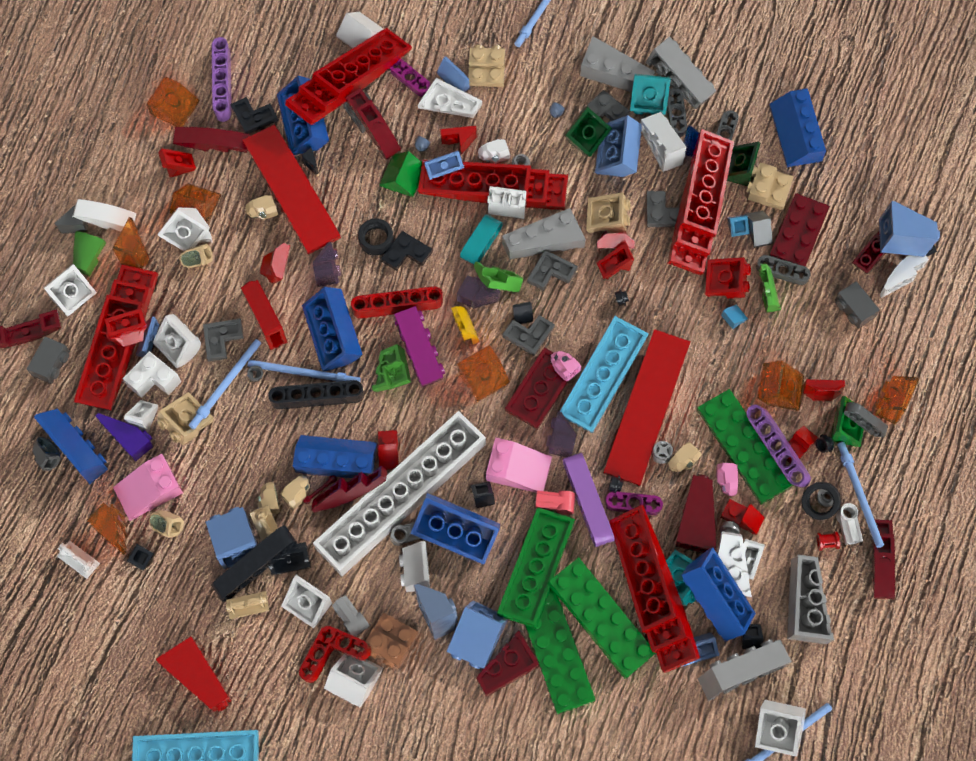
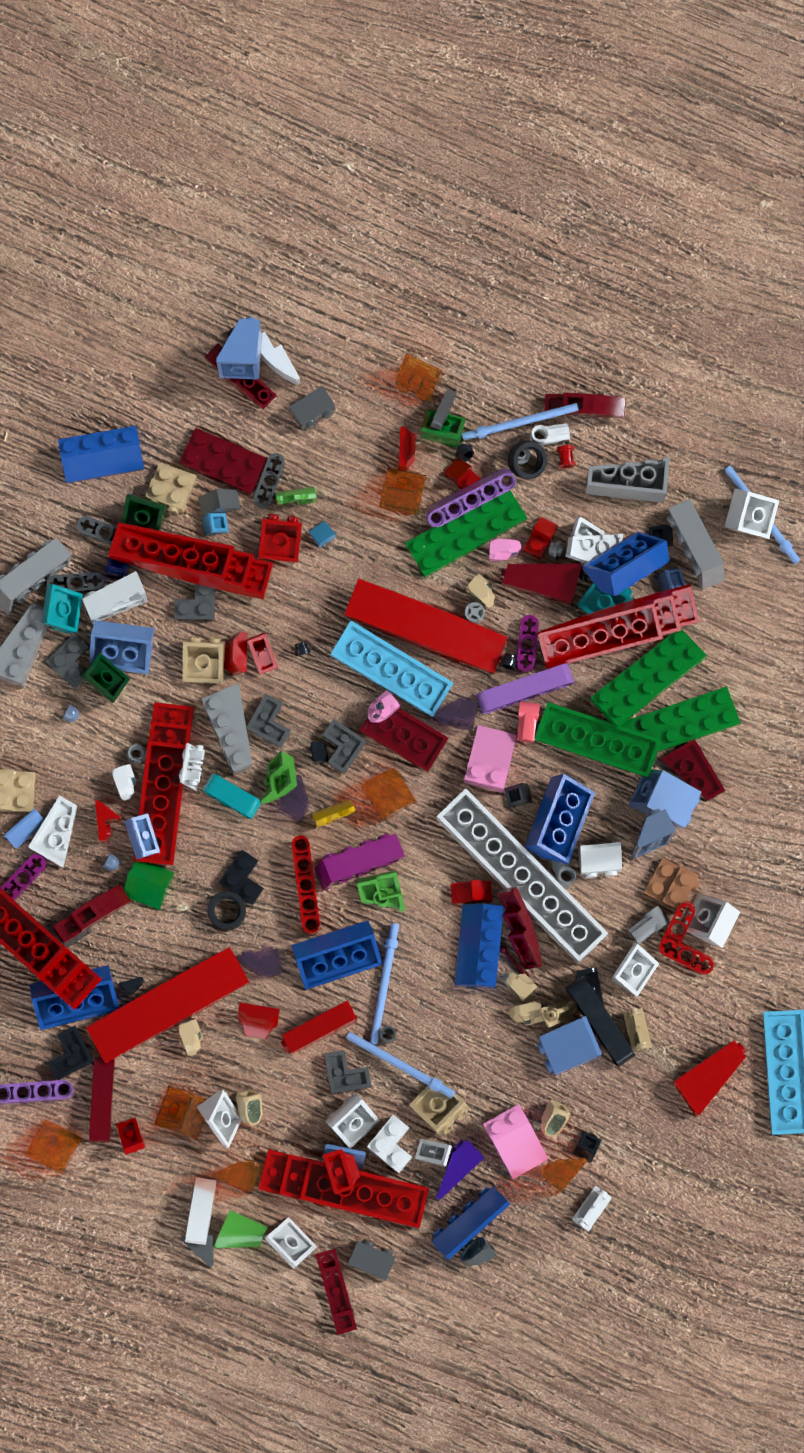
camera: 95 degrees left, 10 degrees up
(308, 390) = (408, 958): black beam -> none

